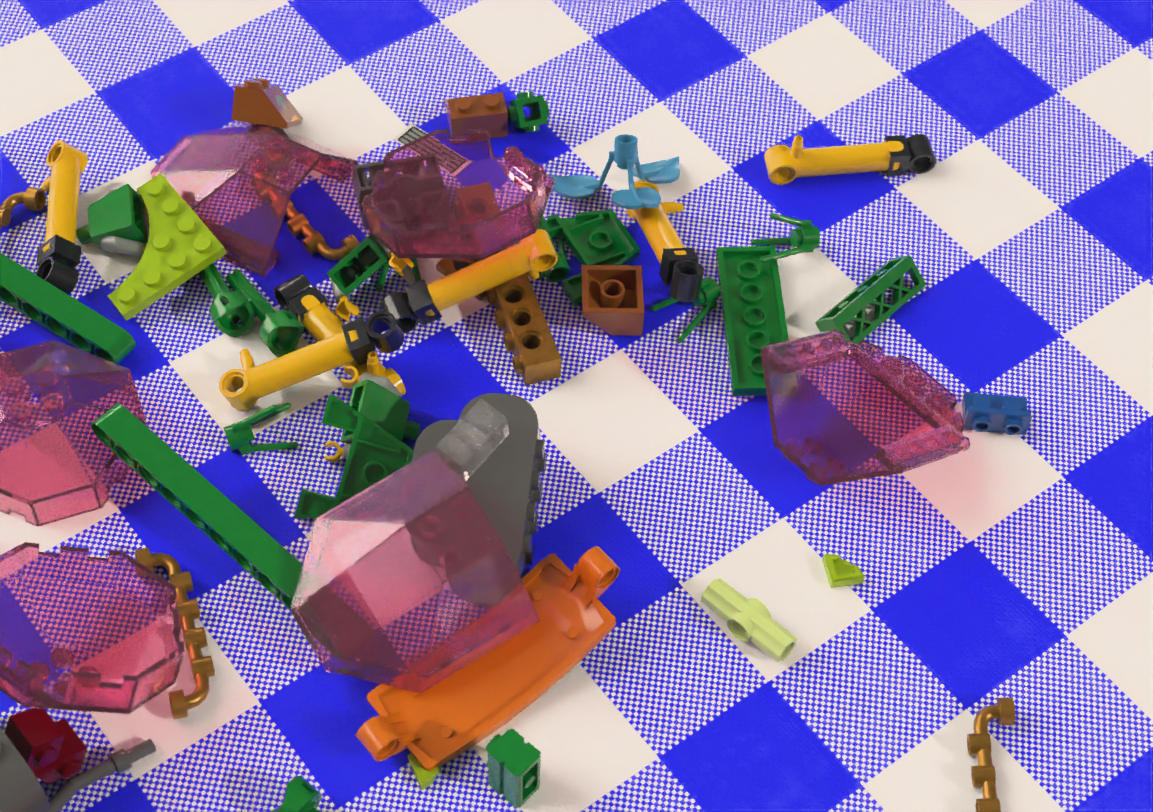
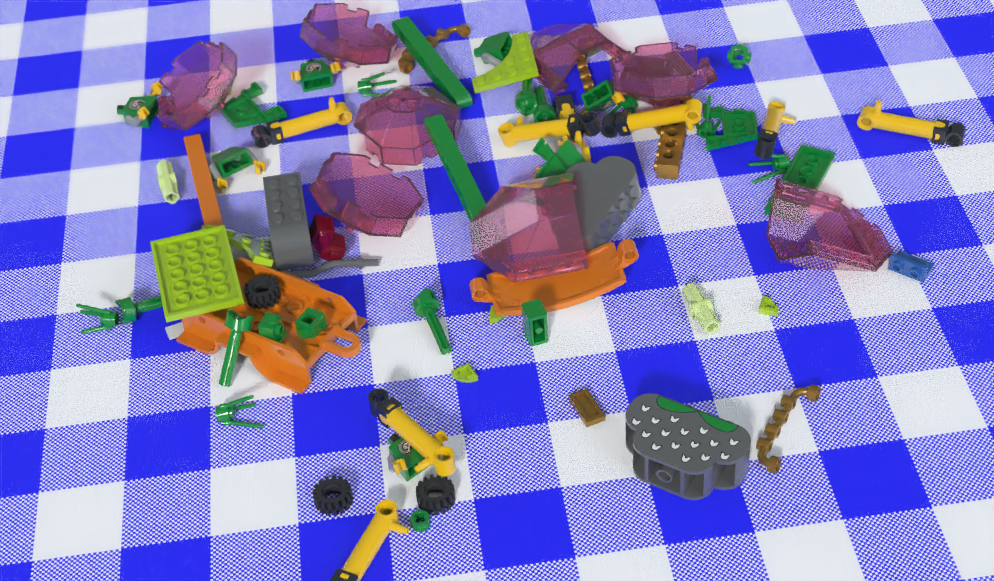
camera: 35 degrees right, 10 degrees down
(59, 252) = (461, 53): yellow piece -> none
(193, 637) = (422, 227): pearl gold bar -> none
(240, 433) = (496, 154): green plant -> none
(263, 104) = (599, 16): dark orange slope -> none
(473, 439) = (594, 171): clear brick -> none
(477, 112) = (713, 50): dark orange slope -> none
(613, 298) = (725, 149): dark orange slope -> none
(625, 156) = (771, 83): dark azure plant -> none
(804, 237) = (855, 154): green plant -> none
(865, 294) = (880, 187): green fence -> none

